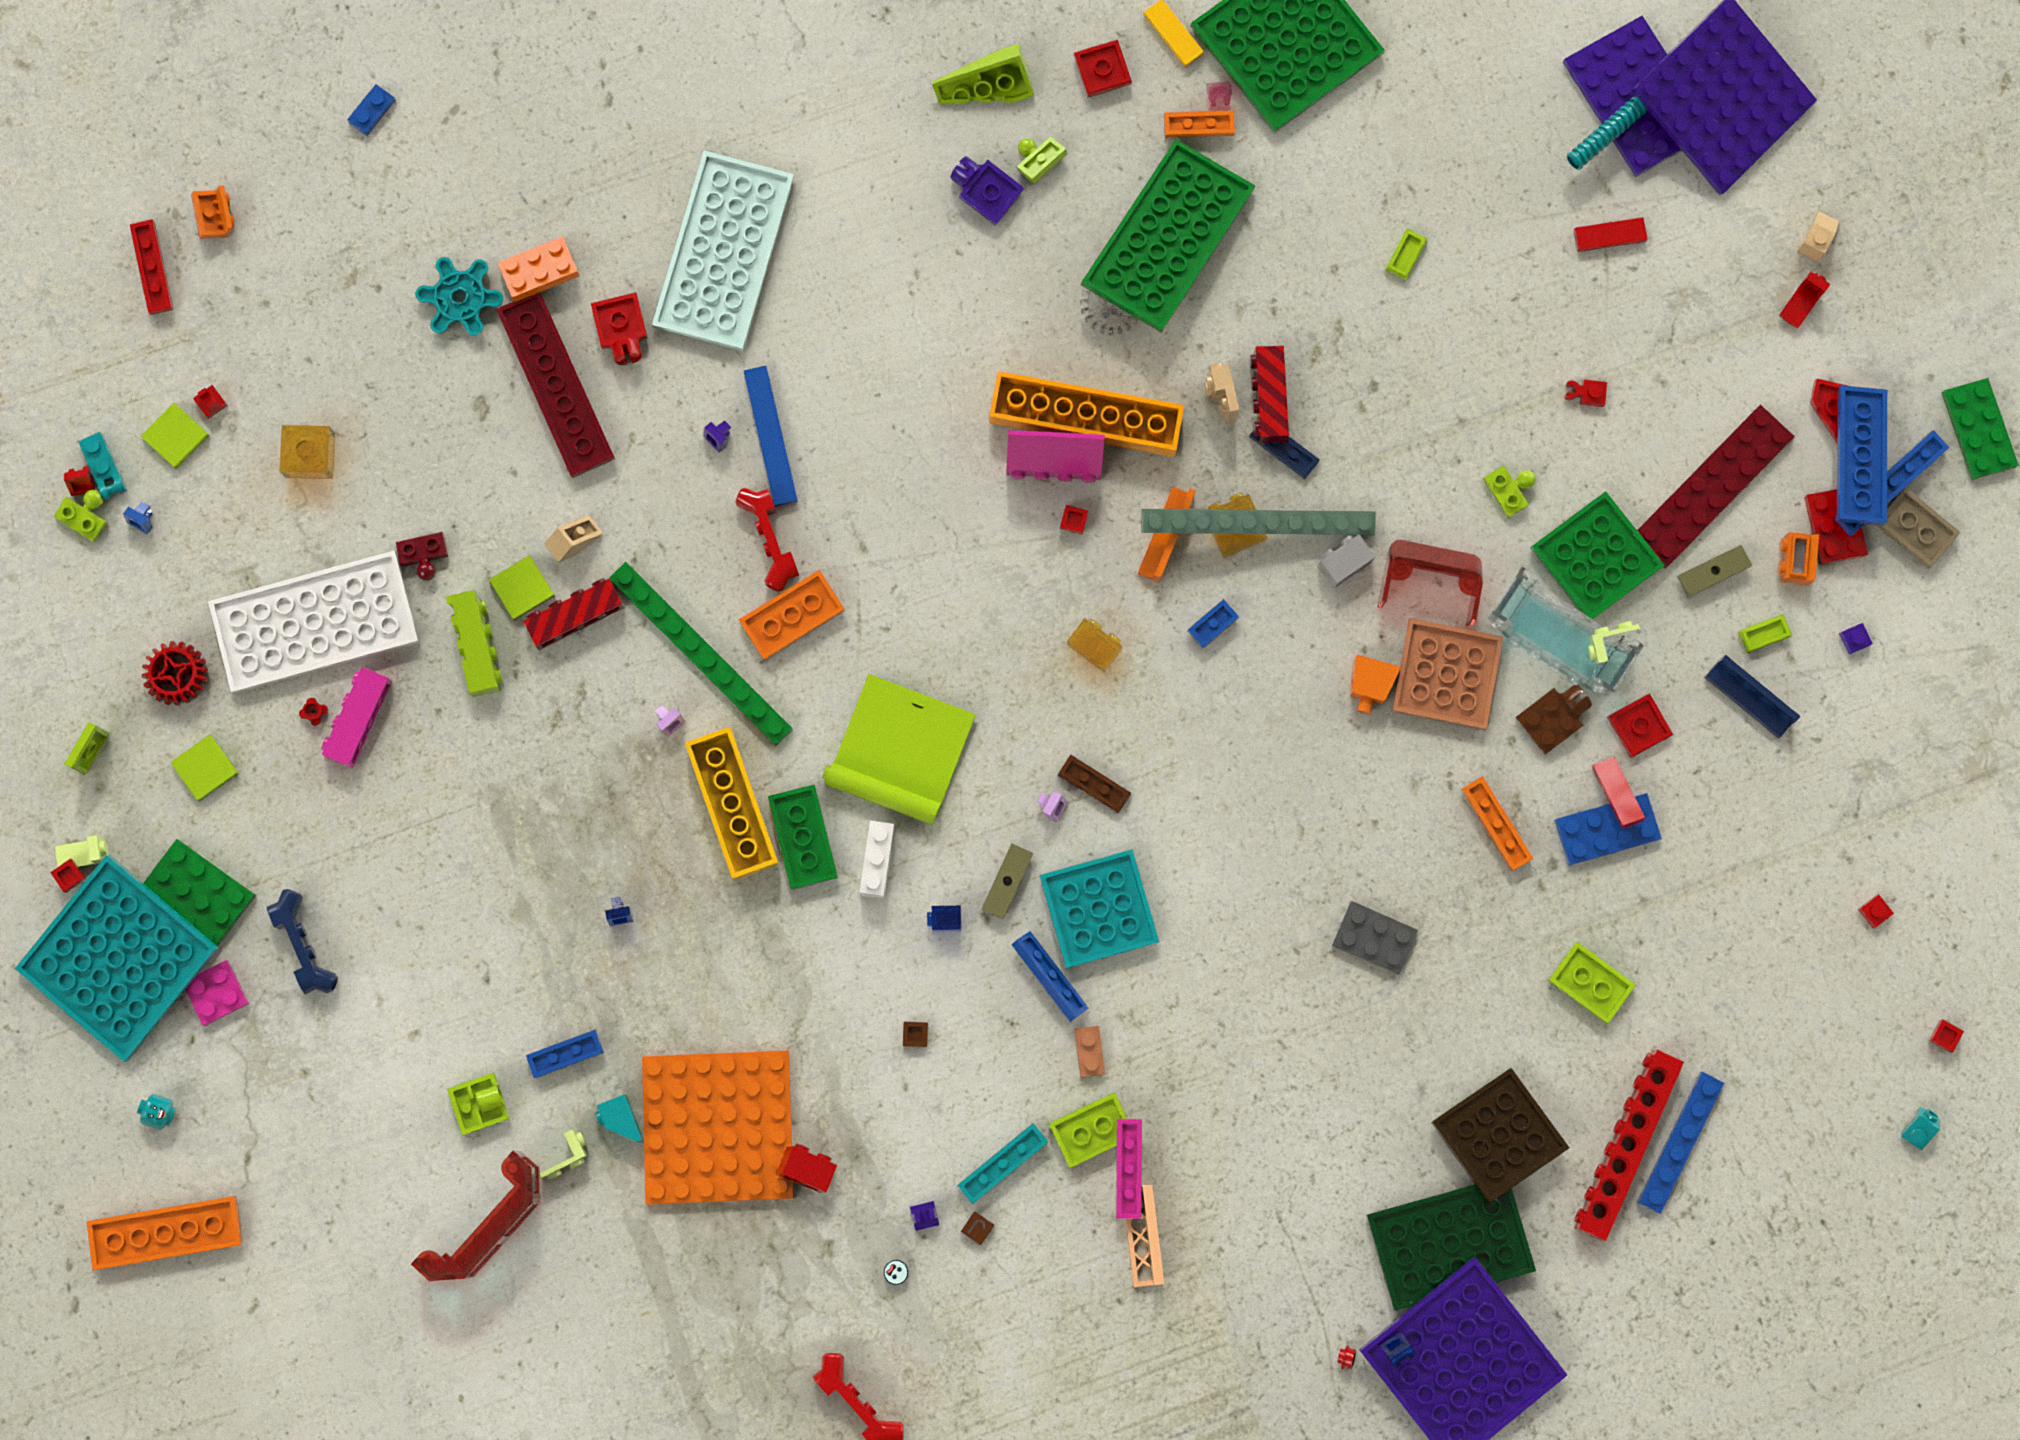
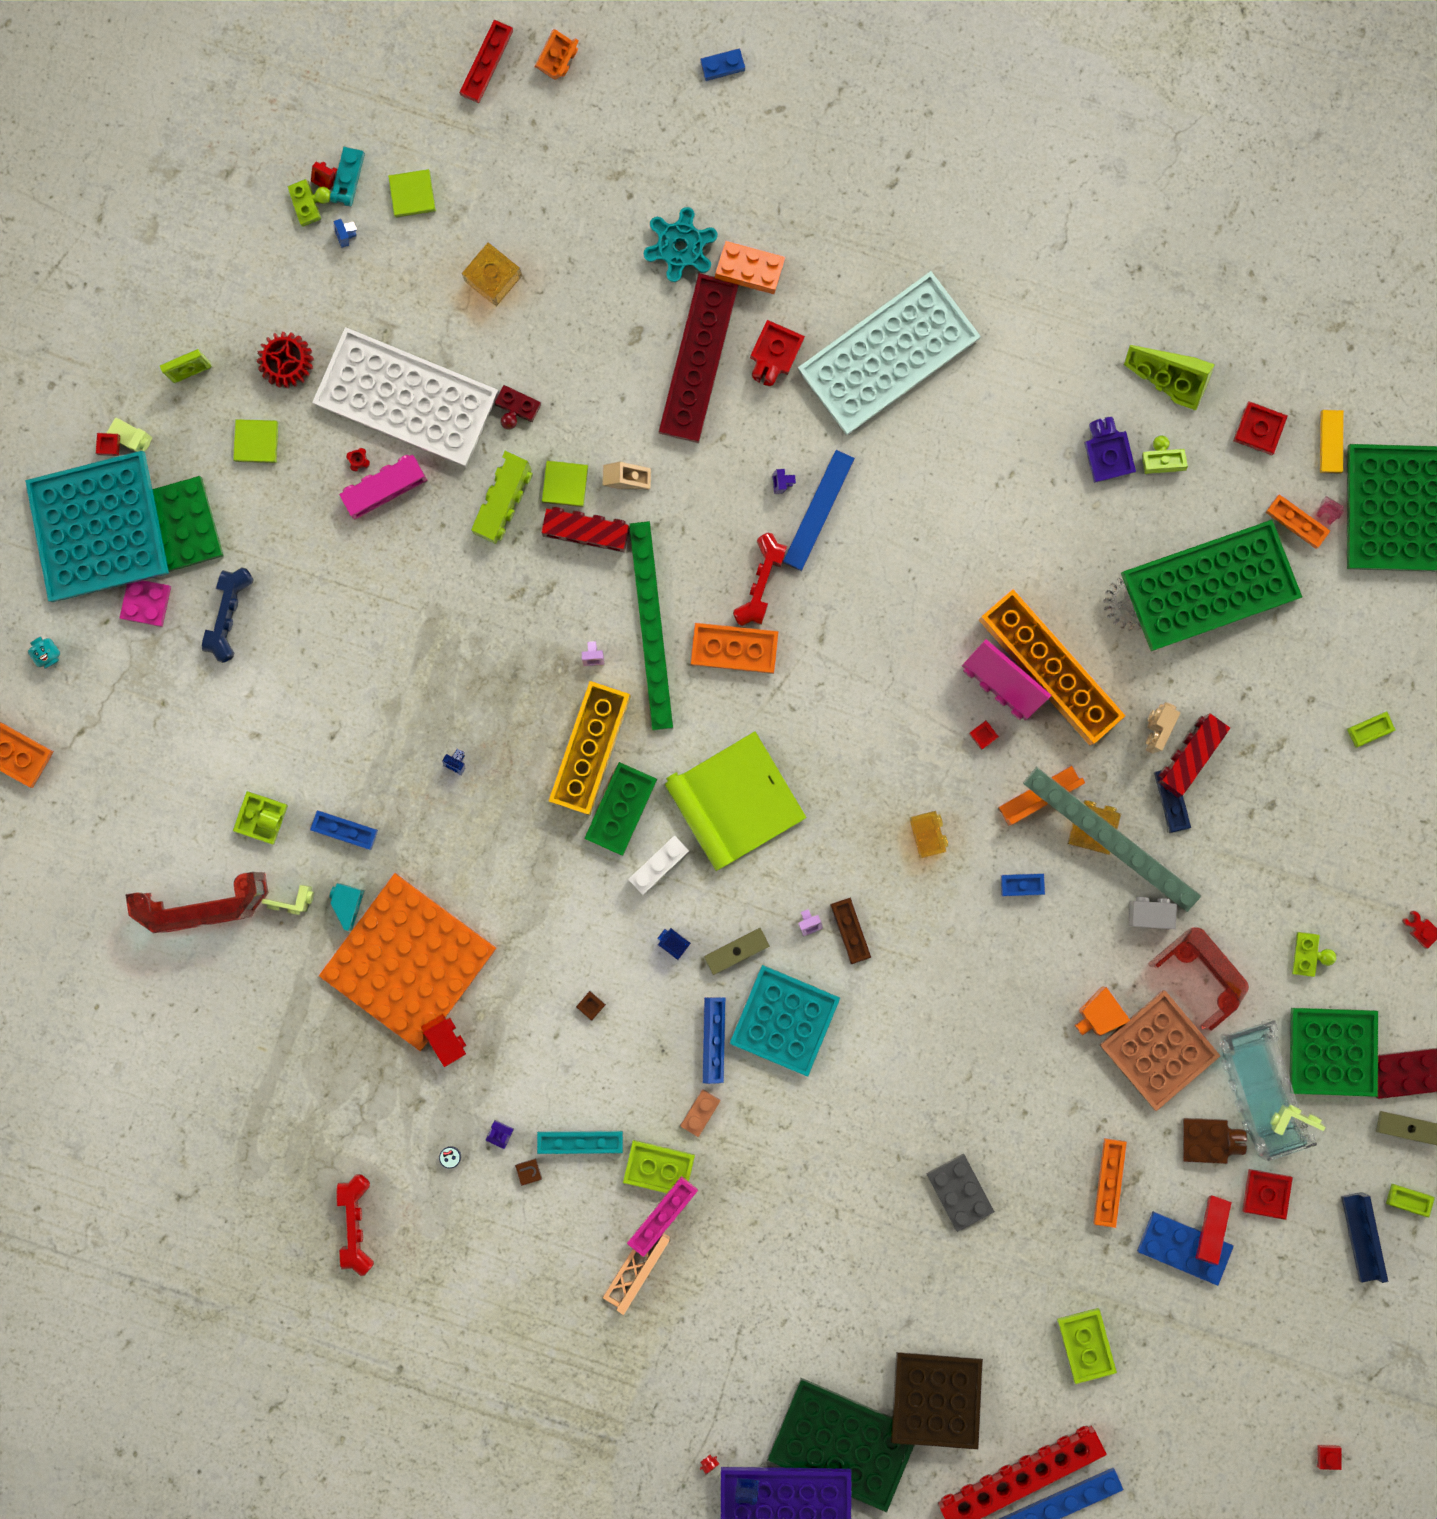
camera: 45 degrees right, 5 degrees up
(210, 401) = (454, 187): red tile -> none

